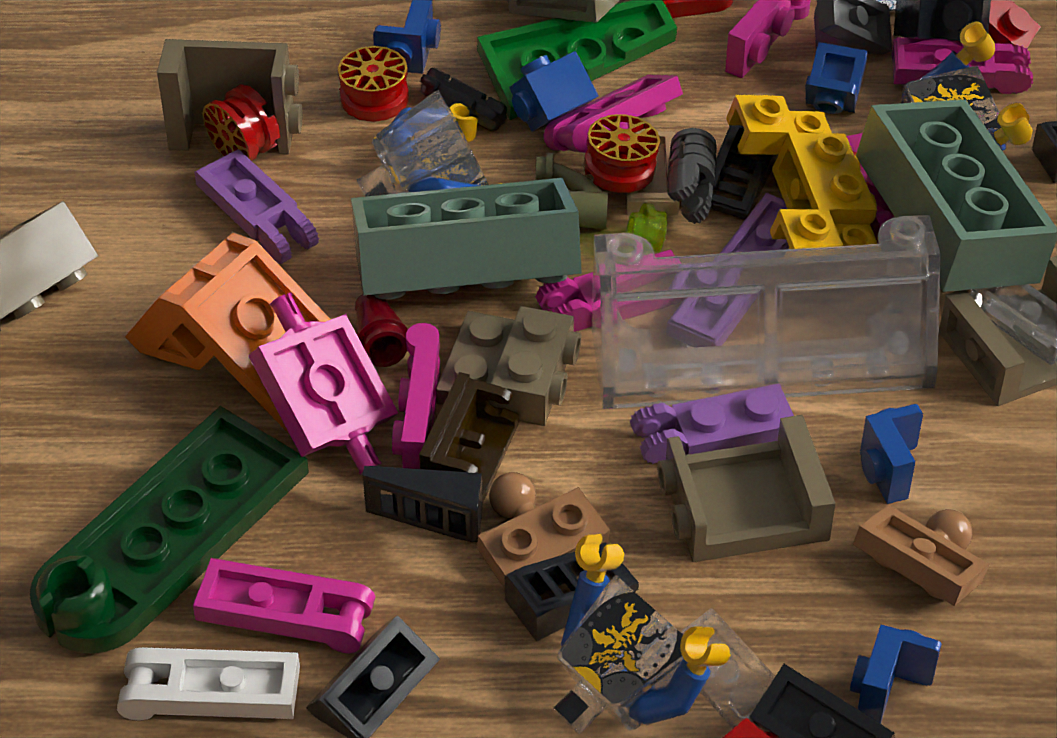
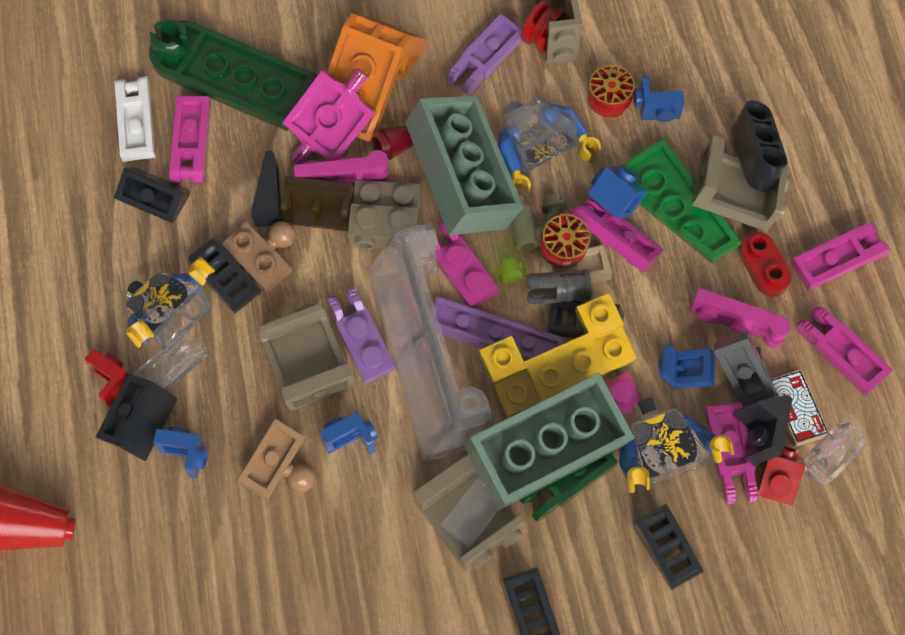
camera: 80 degrees right, 20 degrees up
(489, 112) = (614, 144): black axle -> none

